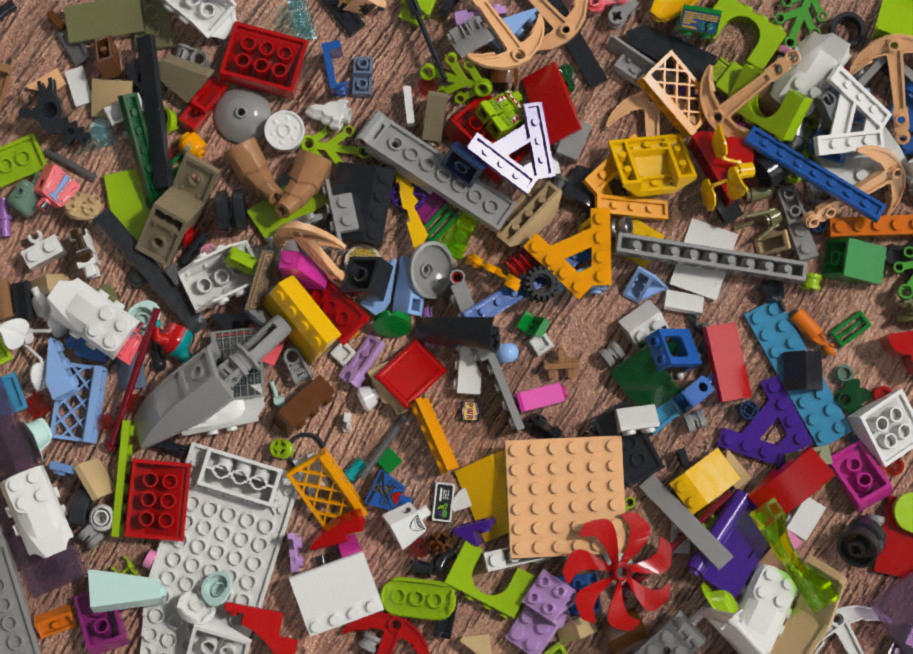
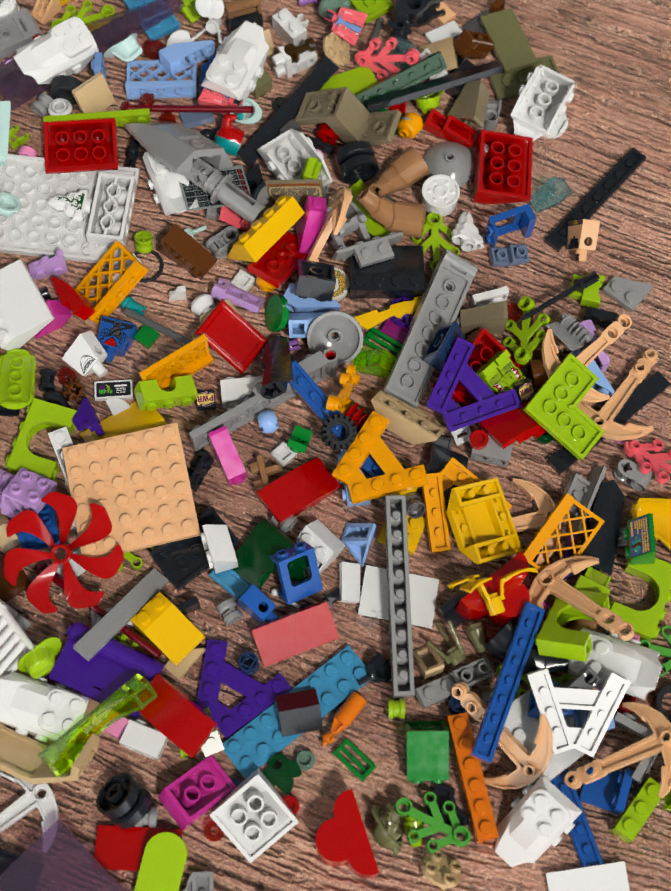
camera: 80 degrees right, 15 degrees down
(100, 176) = (384, 58): none -> coral plant
(228, 515) = (73, 204): none -> white rock
(465, 463) = (151, 396): none -> lime arch
(520, 95) = (524, 390): none -> tile
(550, 67) = (557, 411): none -> lime plate
(566, 150) = (478, 439): none -> red tile
(585, 334) = (298, 490): none -> red slope

